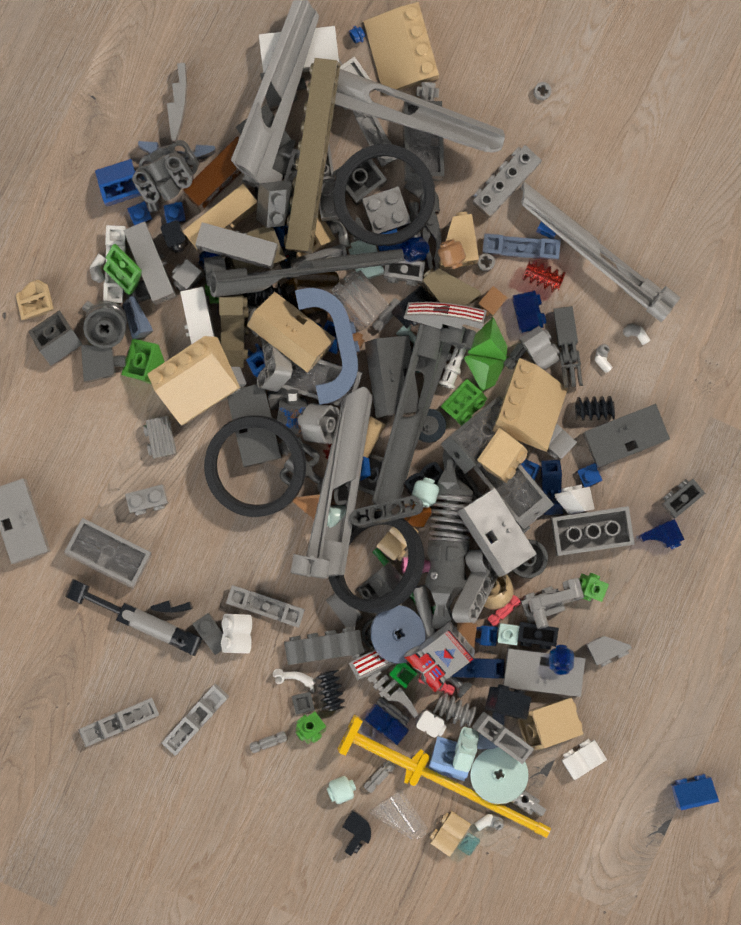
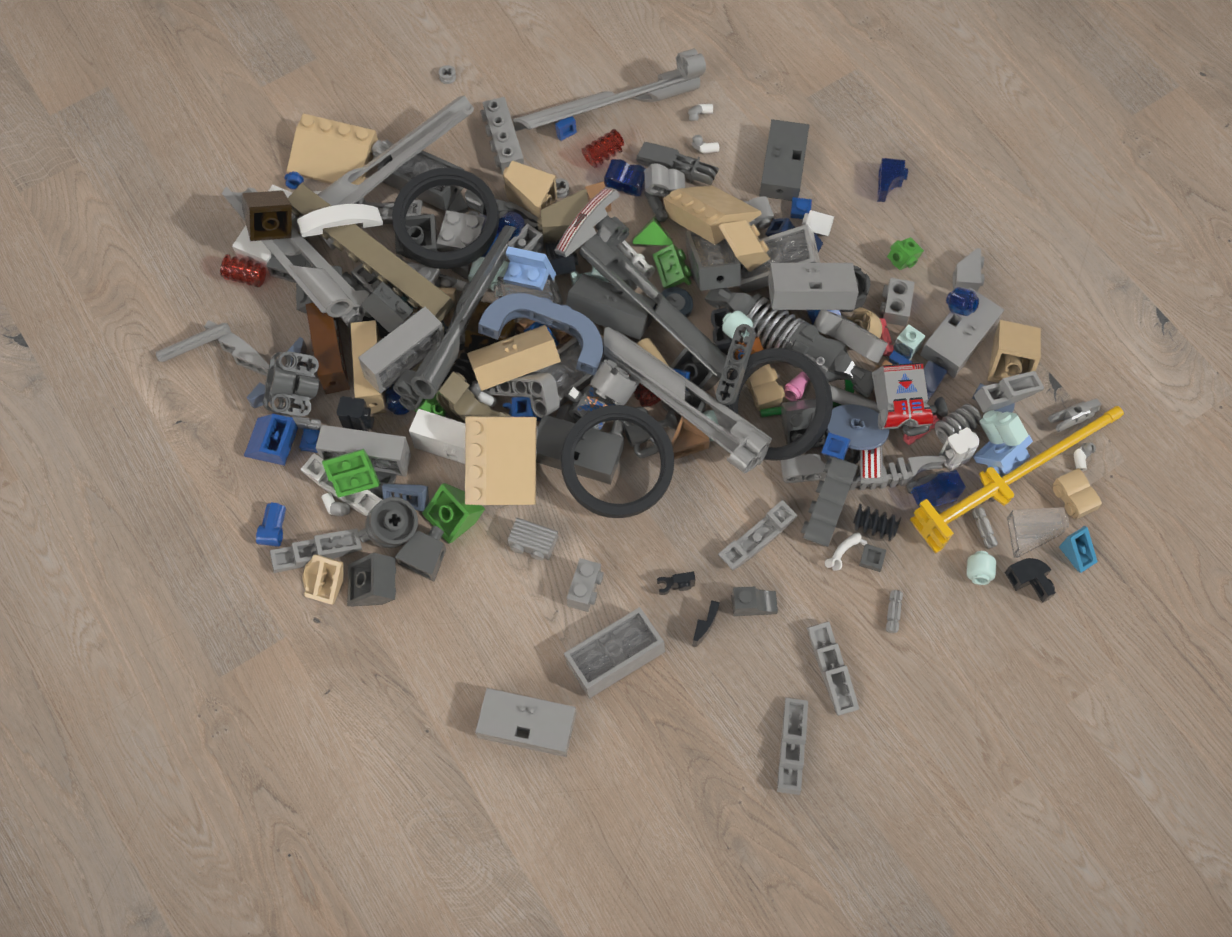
camera: 60 degrees left, 20 degrees down
(48, 234) = (271, 530): none -> blue piece
(54, 278) = (327, 545): none -> light grey slope
(139, 620) = (690, 668): black piece -> none
(159, 64) = (193, 342): none -> light grey axle
(174, 212) = (329, 411): blue plate -> none
(186, 276) = (397, 421): light grey brick -> none
(194, 571) = (680, 581): none -> black plate
(236, 633) = (771, 577): white brick -> none
(245, 55) = (242, 272): none -> clear red piece
(292, 52) = (267, 215): none -> dark brown slope
(316, 727) = (903, 560): bright green brick -> none
(324, 114) = (338, 215): none -> white slope
(364, 628) = (836, 446): none -> blue tile
(374, 294) = (528, 269): none -> light blue bracket
(402, 858) = (1079, 549): none -> dark azure slope
(403, 674) = (895, 448): green window -> none
(451, 253) = (536, 187): medium nougat head -> none
(469, 844) = (1098, 481): clear light blue slope -> none
(486, 783) = (1058, 418): light aqua piece -> none
(489, 342) = (633, 218): bright green slope -> none
(507, 702) = (977, 368): black brick -> none
(521, 247) = (571, 149): sand blue slope -> none
(544, 637) = (926, 314): black brick -> none
(571, 593) = (902, 264): light grey beam -> none
(583, 759) = (1063, 344): white brick -> none
(592, 531) = (854, 225): light grey brick -> none
(594, 408) = (744, 170): black piece -> none
(683, 498) = (867, 145): dark grey brick -> none
(694, 792) = (1144, 269): blue slope -> none

